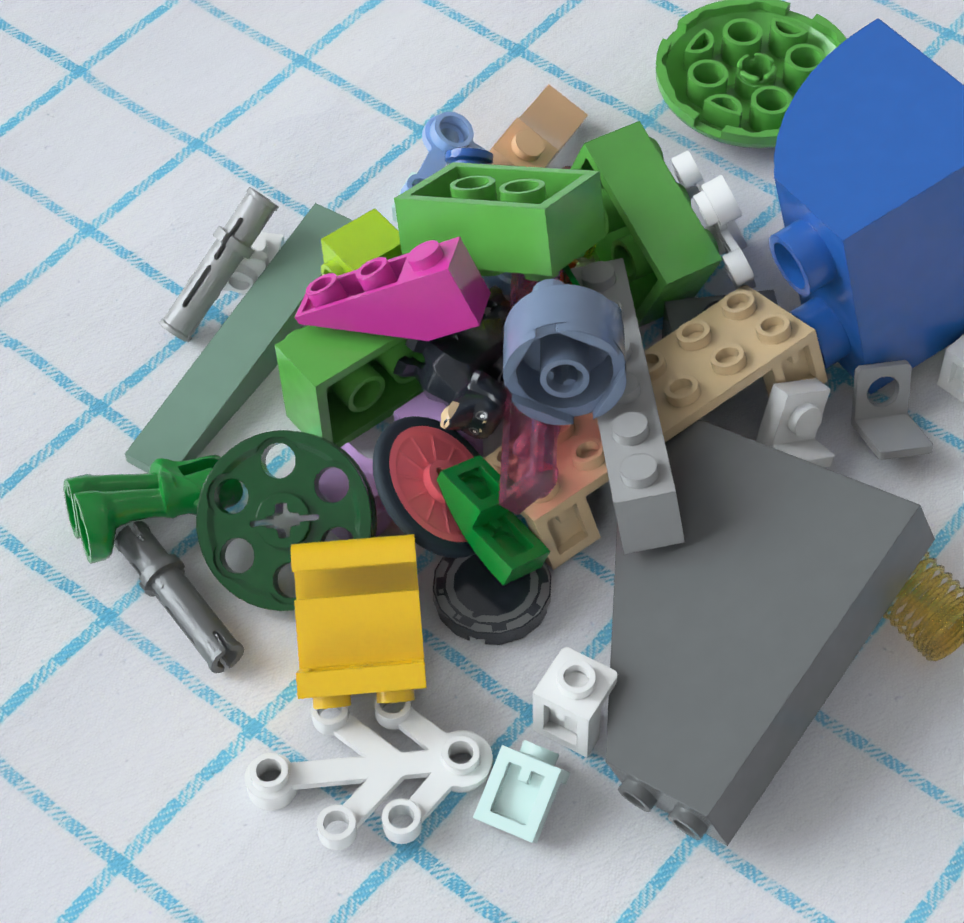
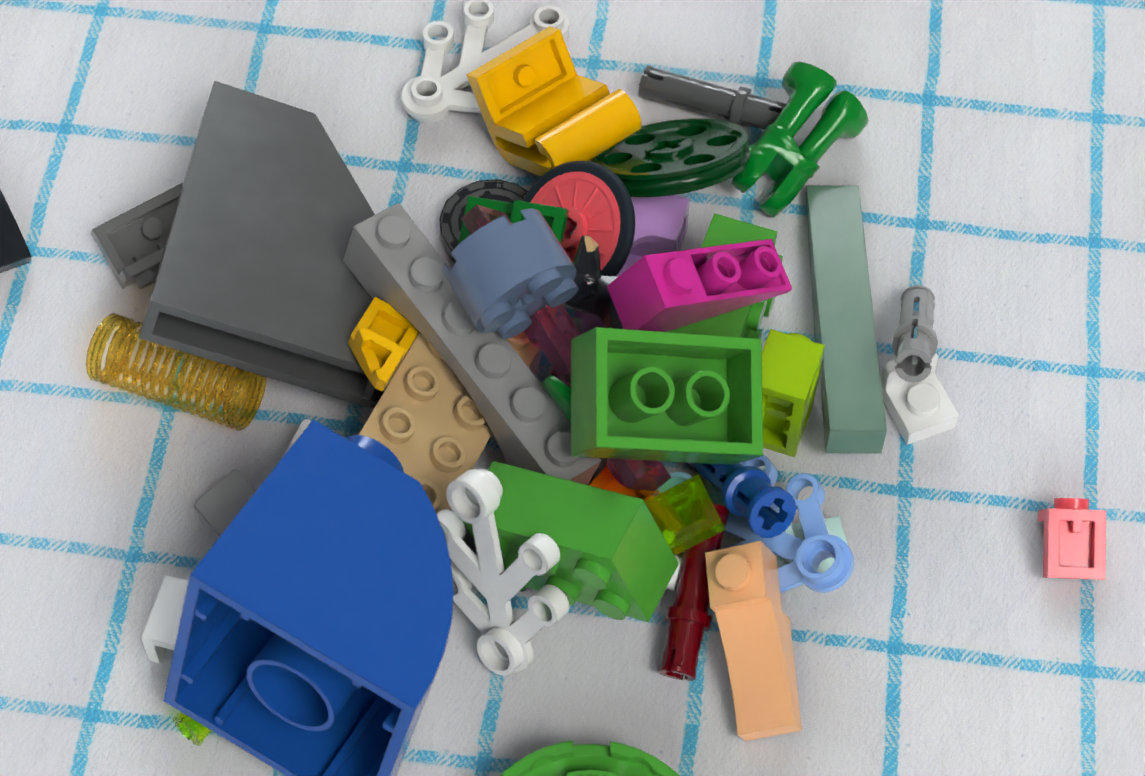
camera: 145 degrees right, 5 degrees up
(229, 113) = (1073, 540): none -> bracket
(521, 790) = (369, 99): light aqua bracket -> none
(571, 700) = (367, 146): white bracket -> none
(704, 435) = (381, 342): none -> yellow slope
(857, 732) = (137, 239): none -> dark grey bracket

